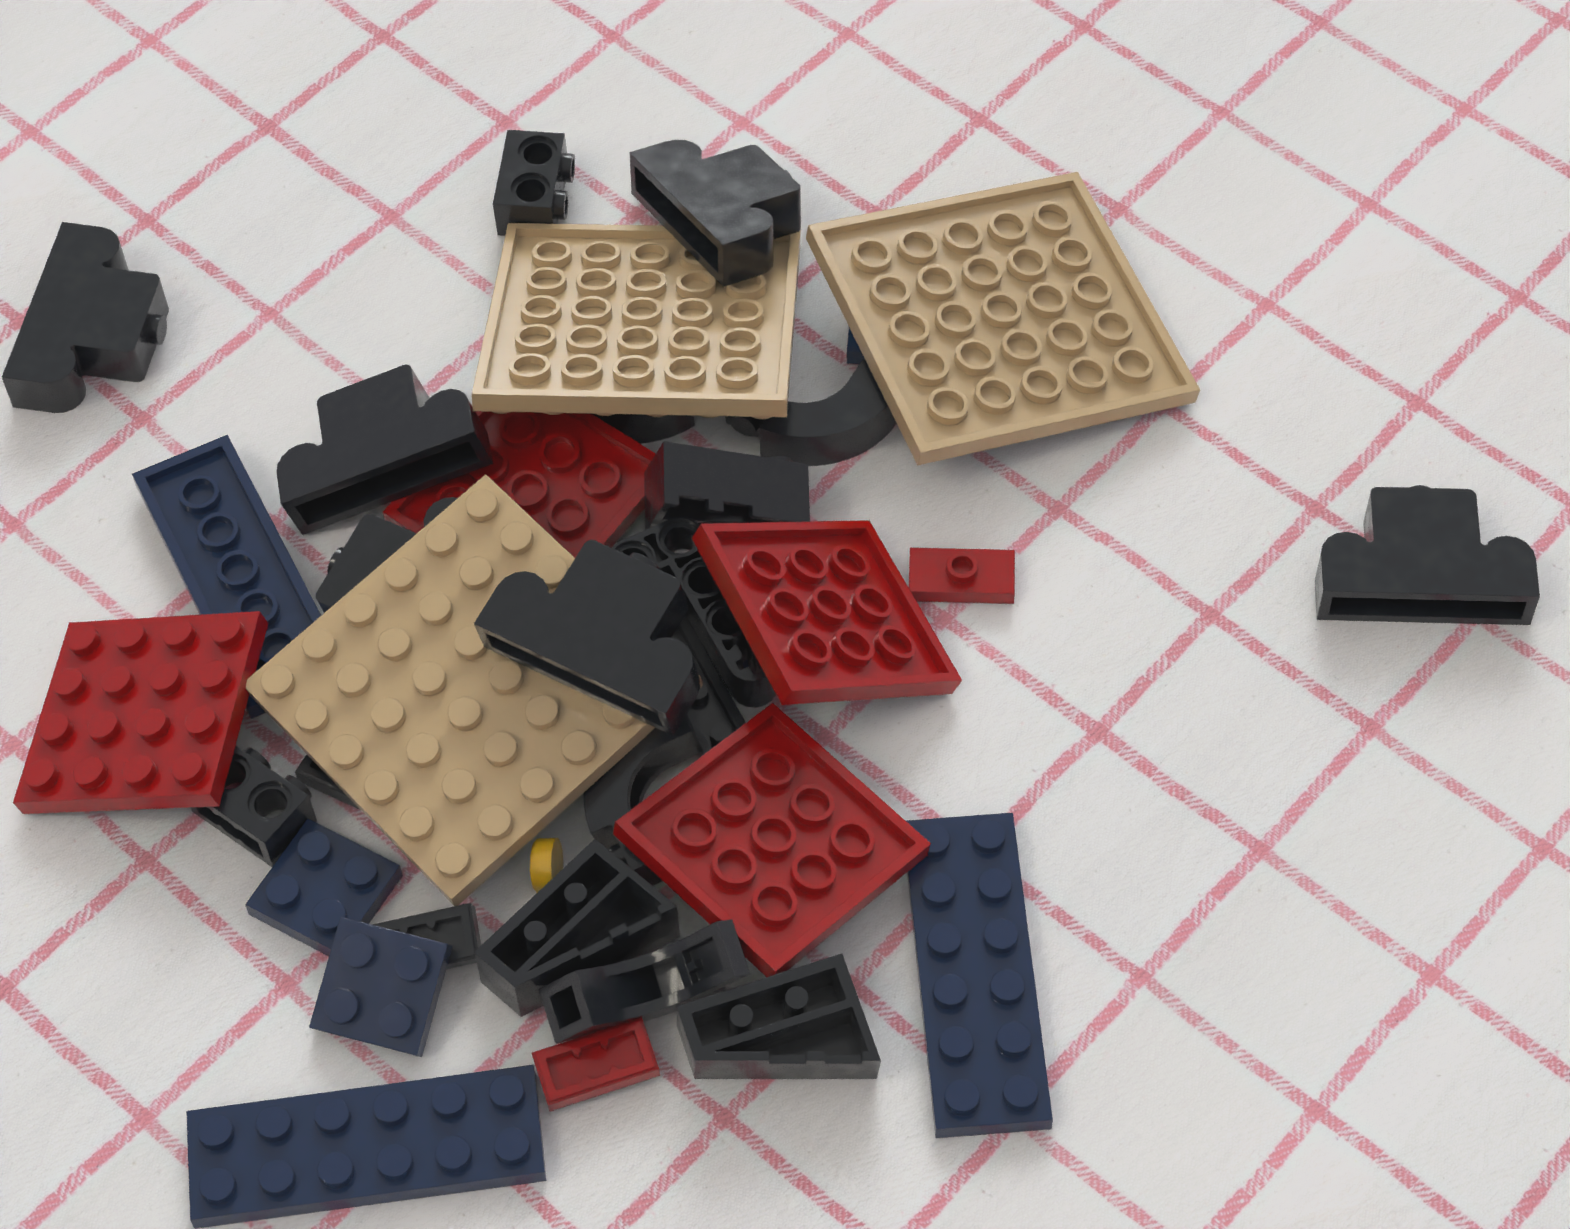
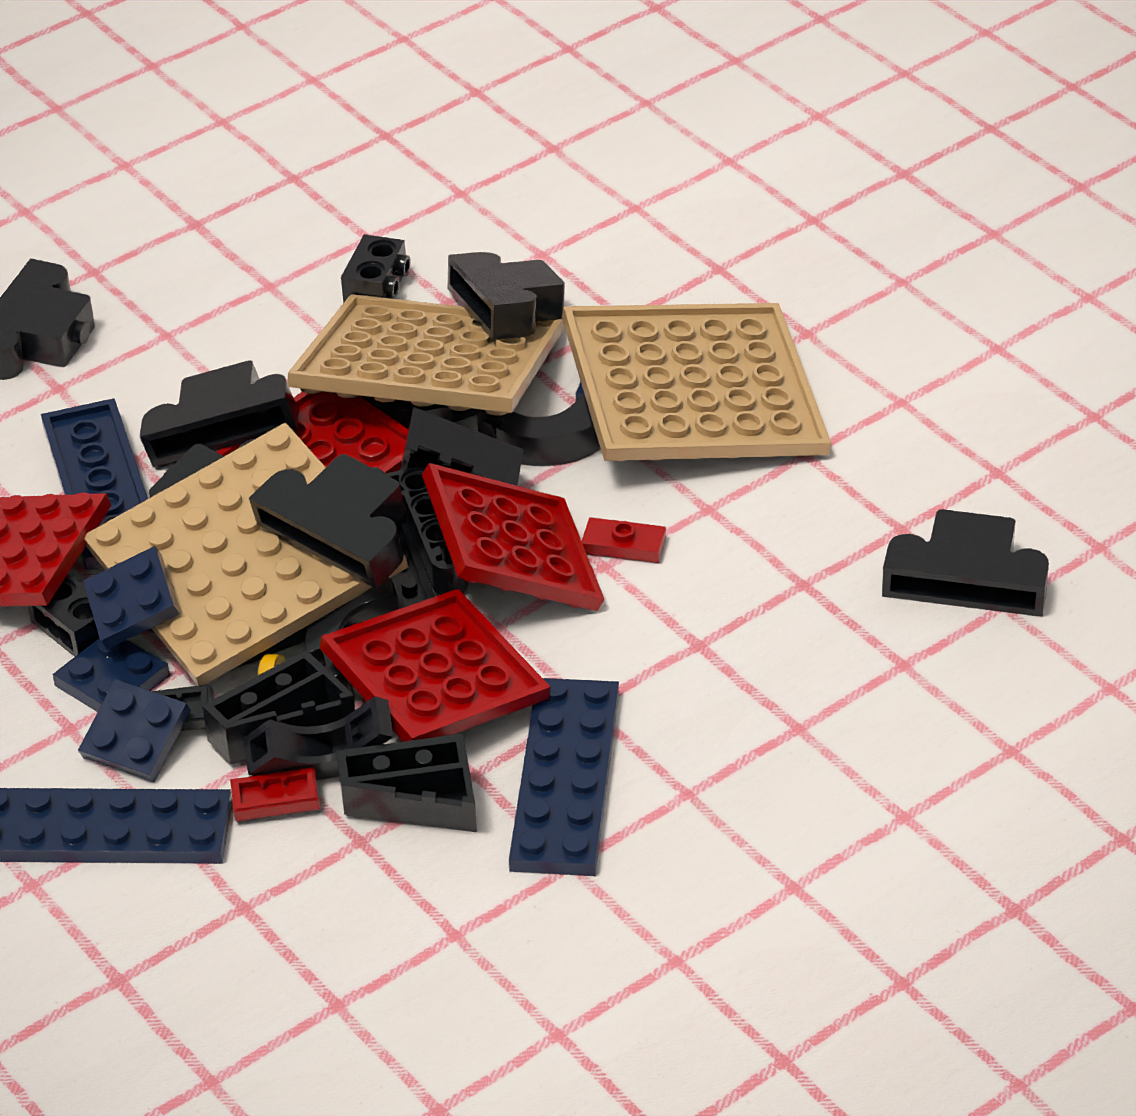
camera: 10 degrees right, 15 degrees down
(335, 784) = (131, 597): none -> dark blue plate

